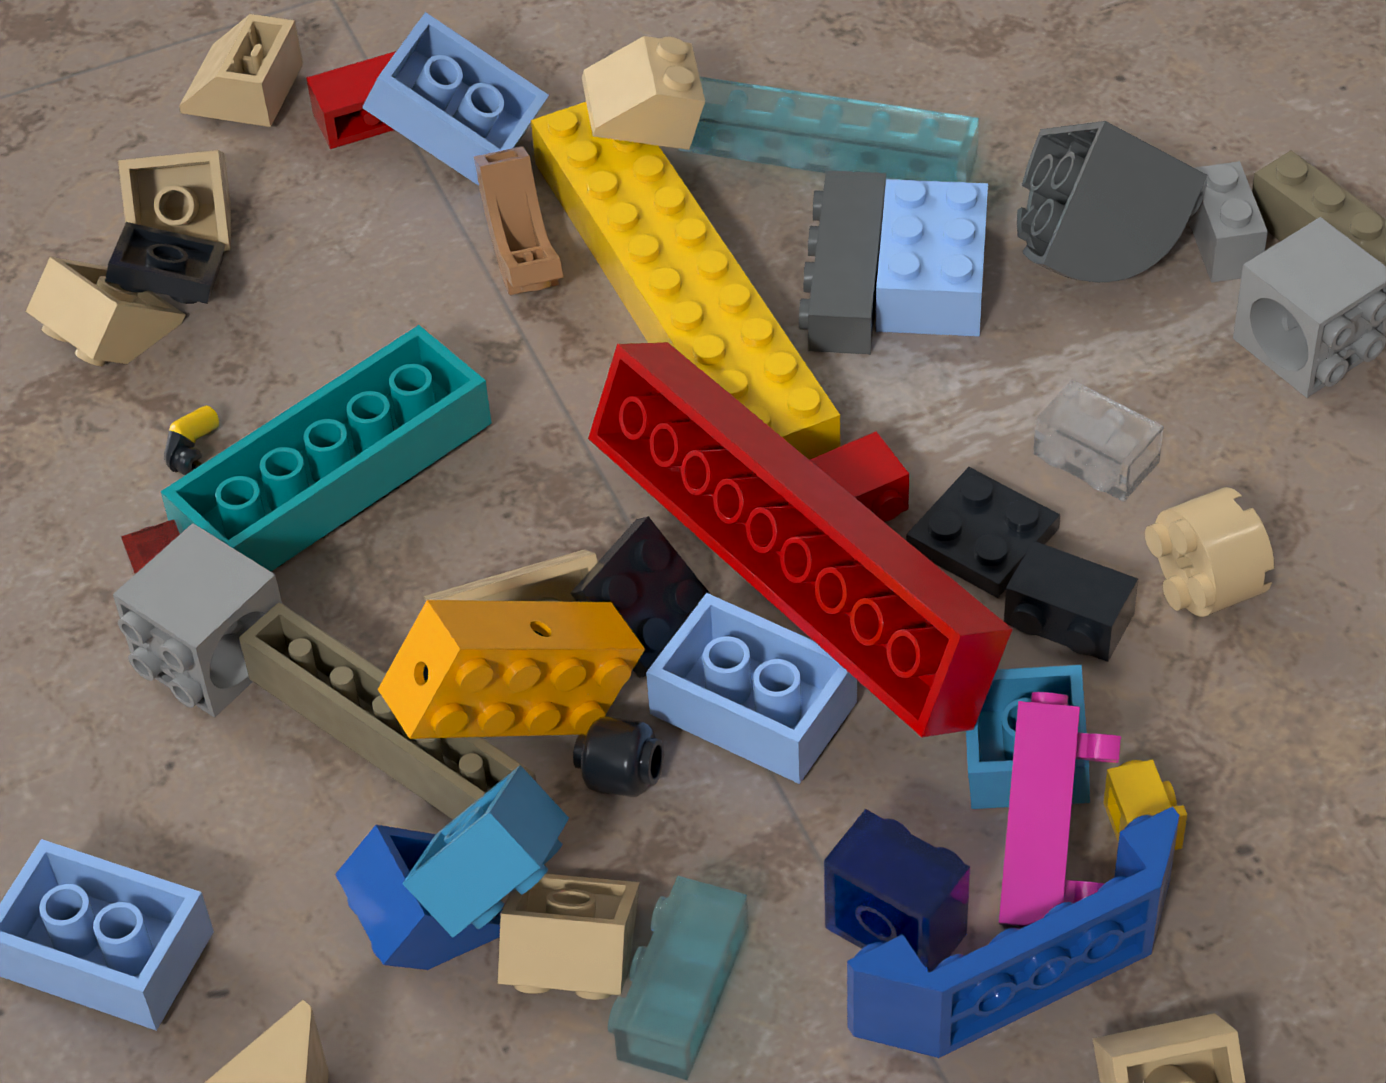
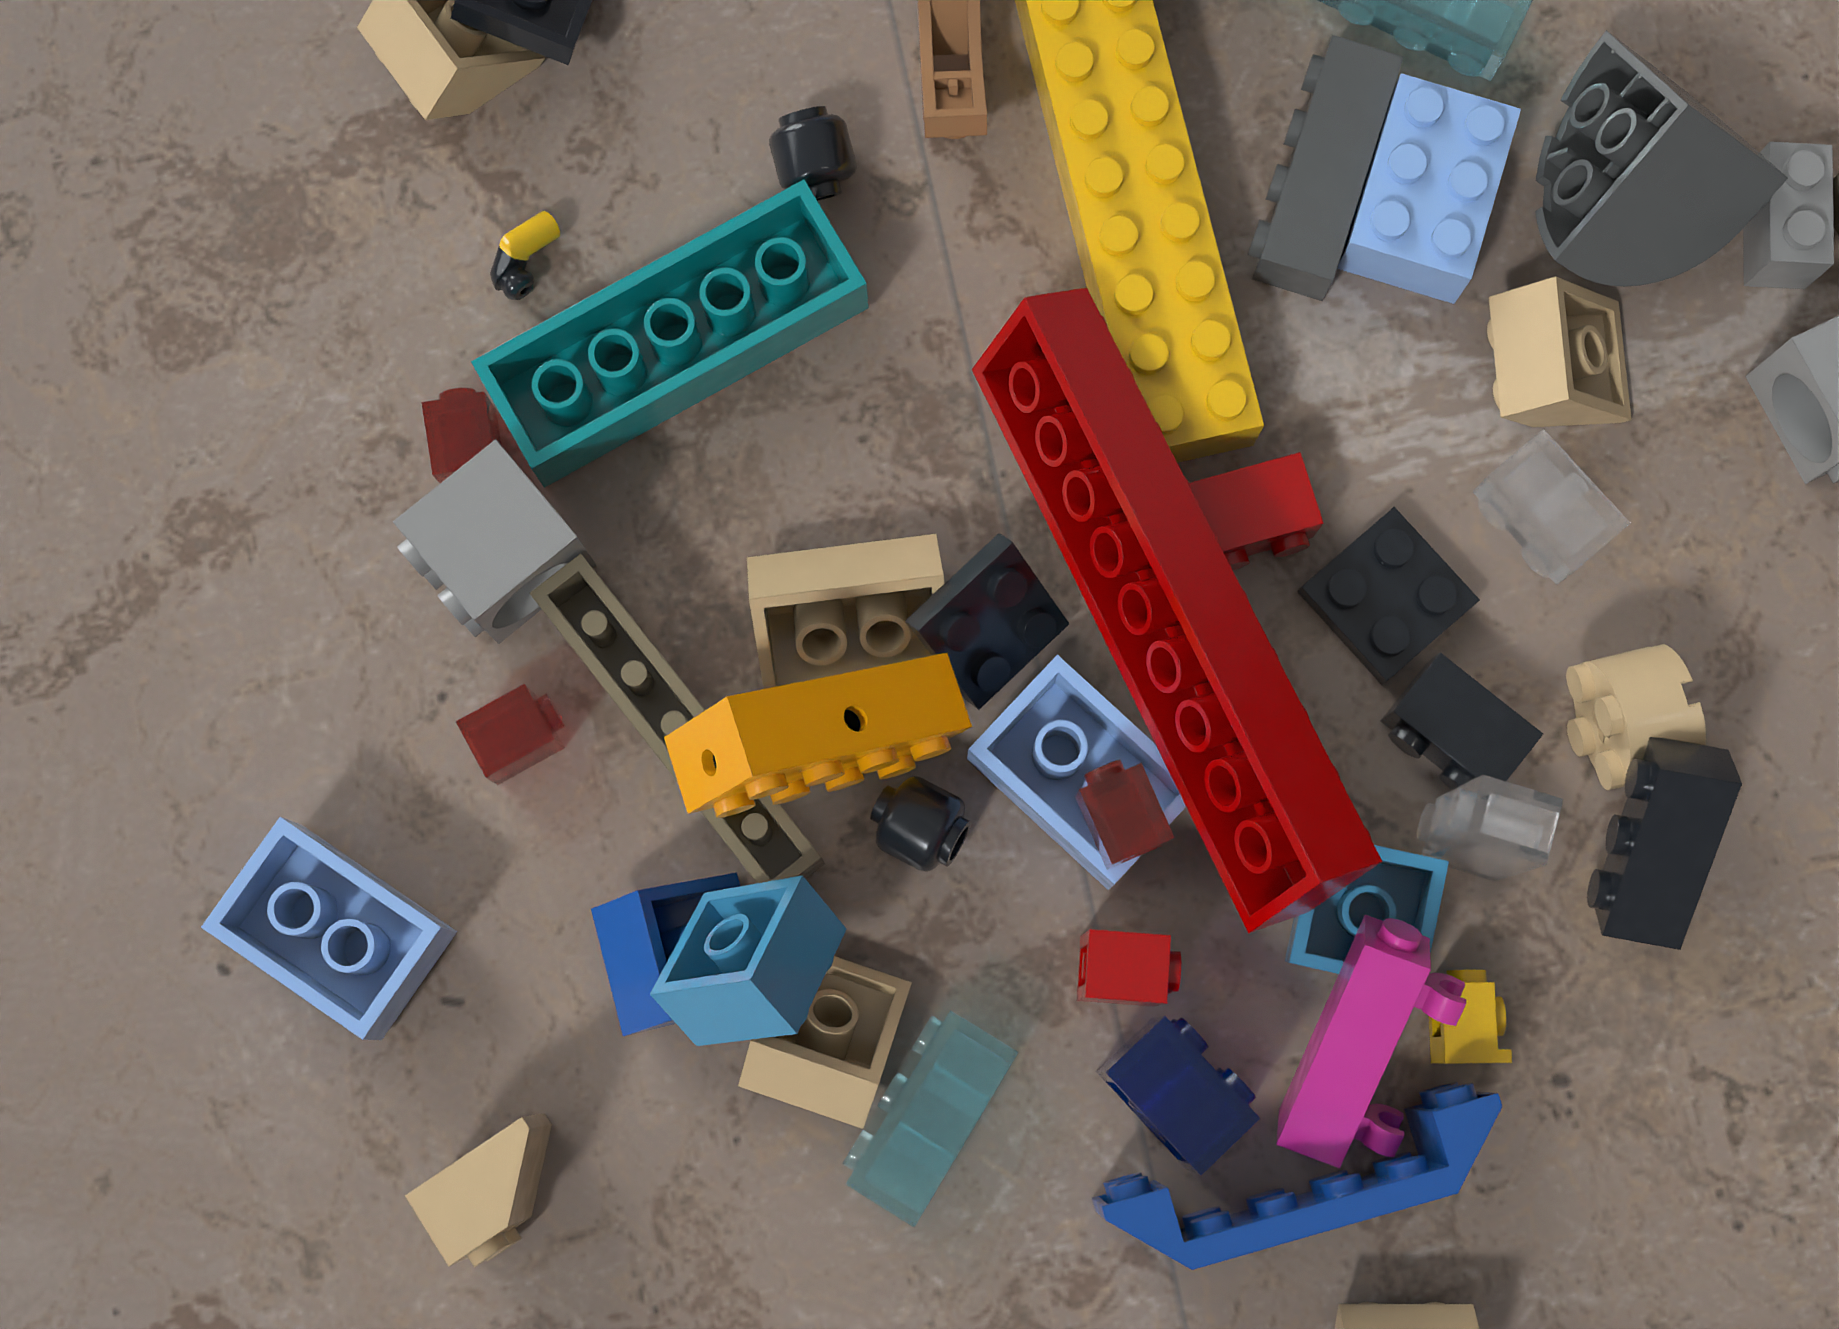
camera: 10 degrees right, 30 degrees up
(239, 765) = (512, 733): none -> clear red brick
(422, 308) = (814, 149): none -> black head
(791, 677) = (1122, 813): none -> clear red brick
(820, 805) = (1127, 968): none -> red brick
(1071, 338) = (1558, 355): none -> tan slope
(1108, 633) = (1490, 828): none -> clear brick
(1260, 624) = (1663, 841): none -> black brick

